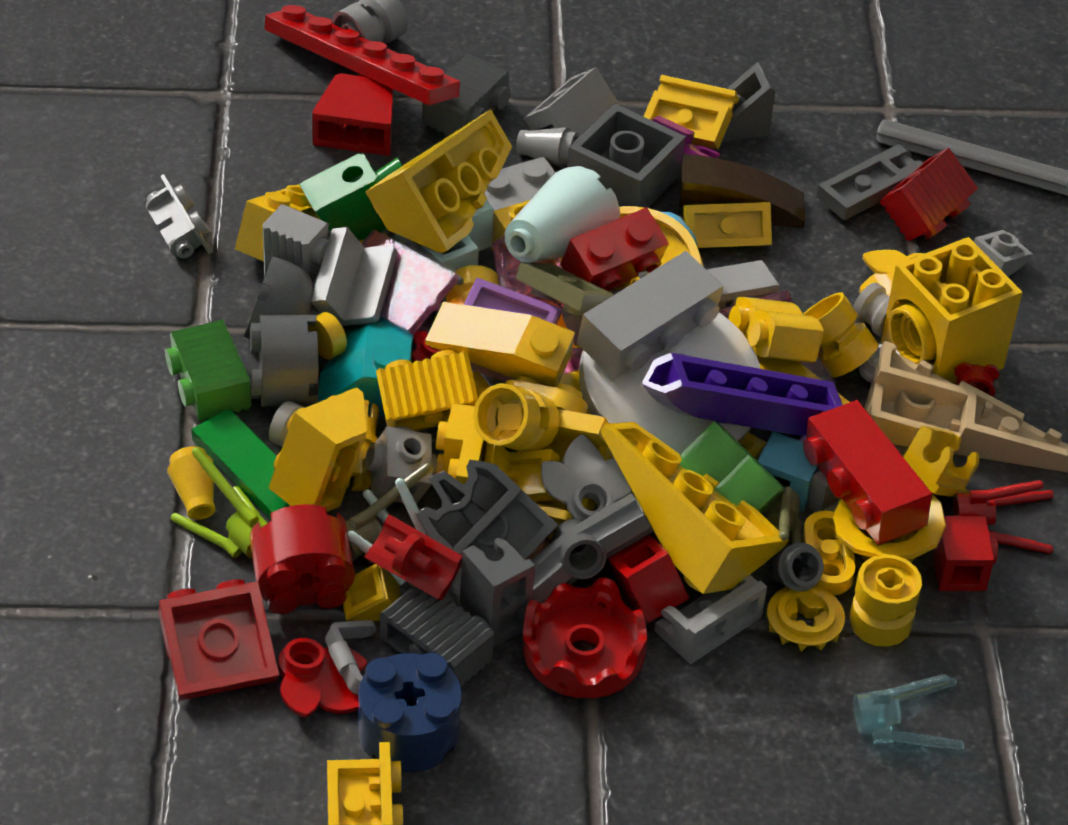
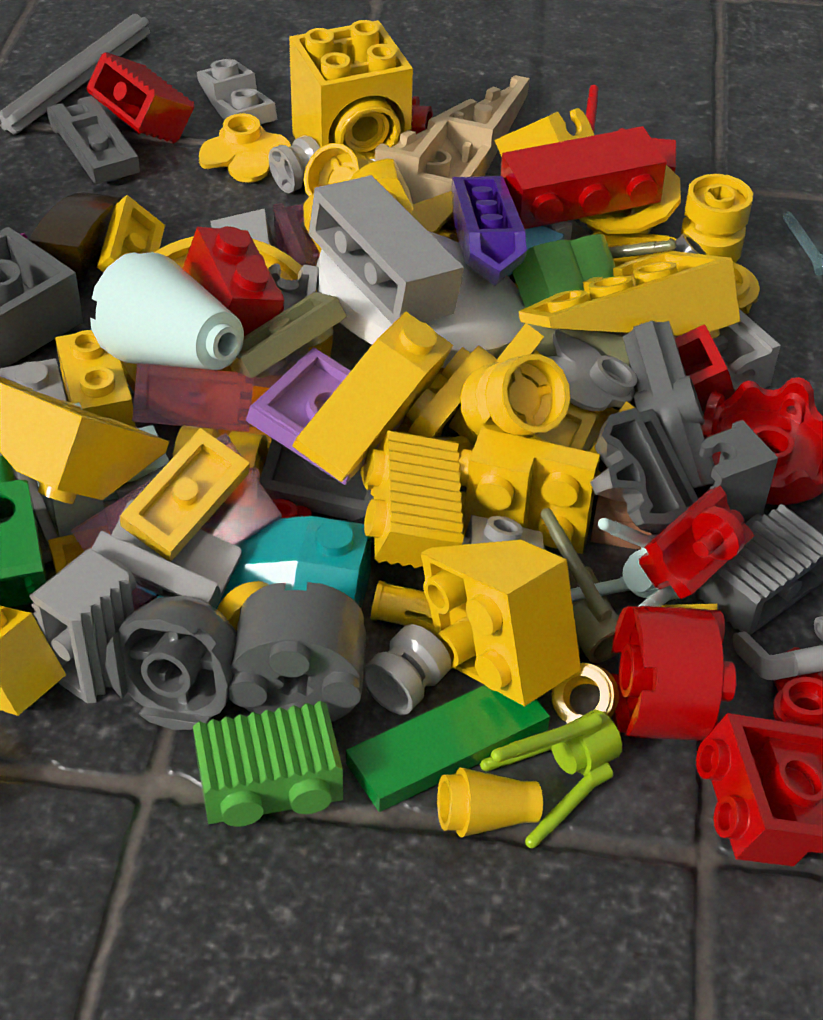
camera: 80 degrees left, 0 degrees up
(392, 263) = (184, 494): none -> yellow plate

